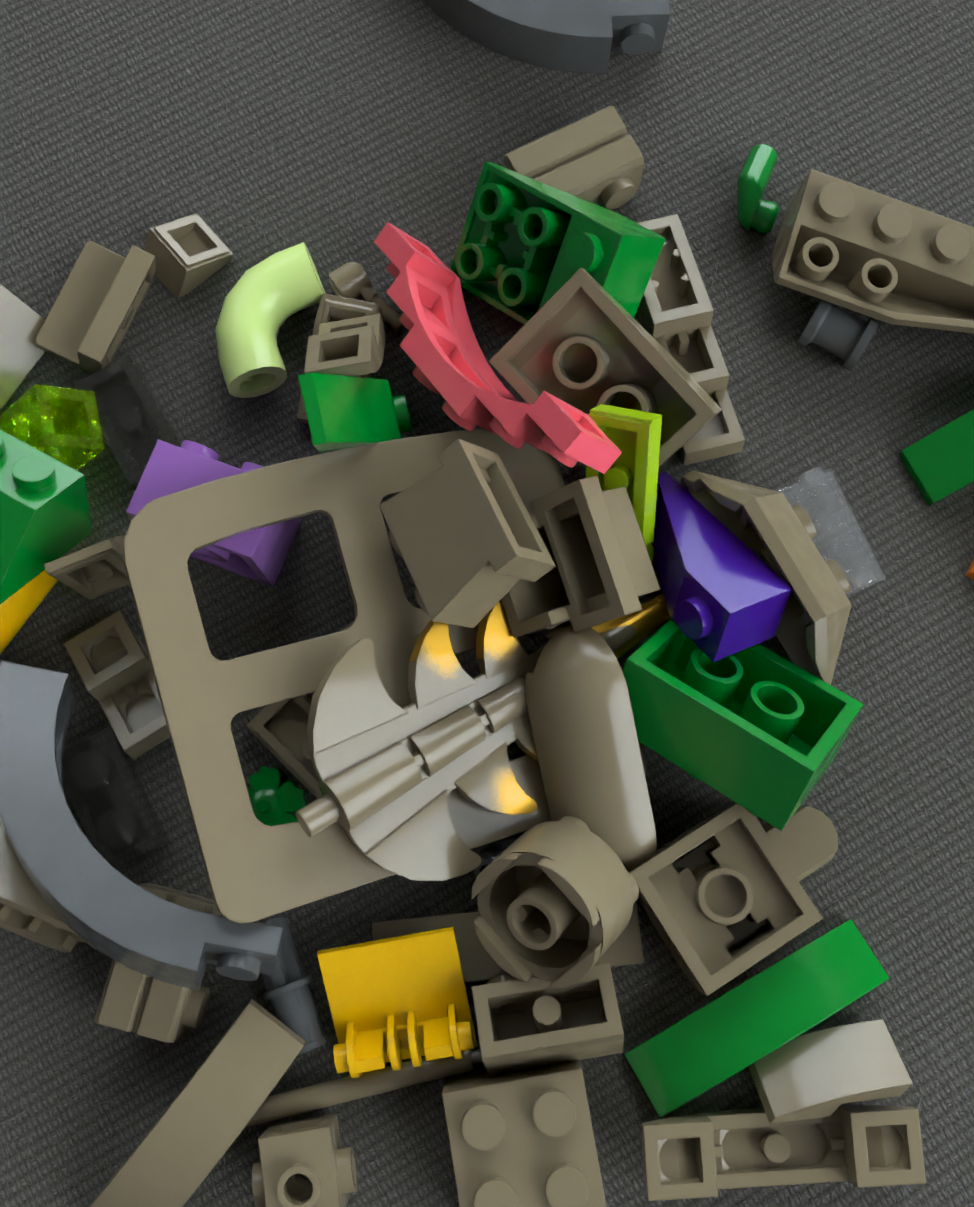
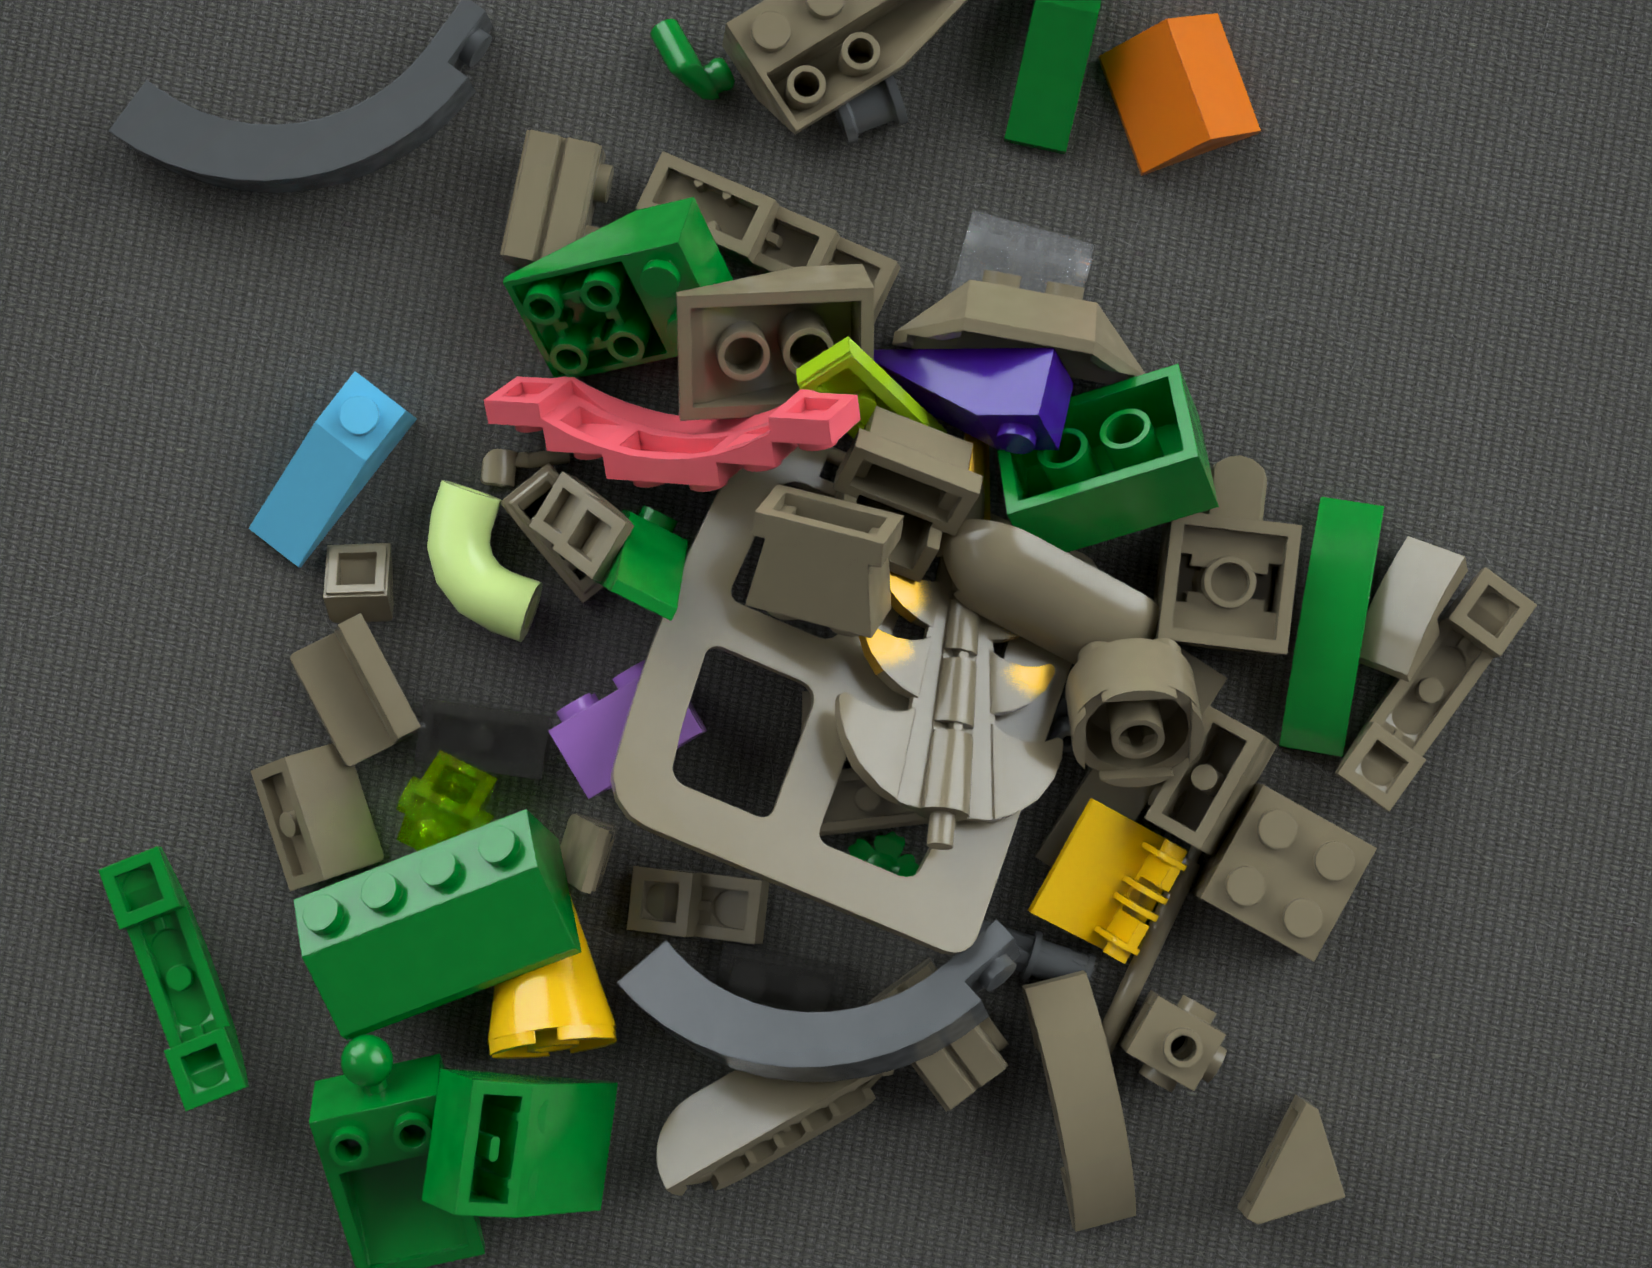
camera: 55 degrees left, 10 degrees up
(257, 166) = (331, 468): none -> medium azure slope

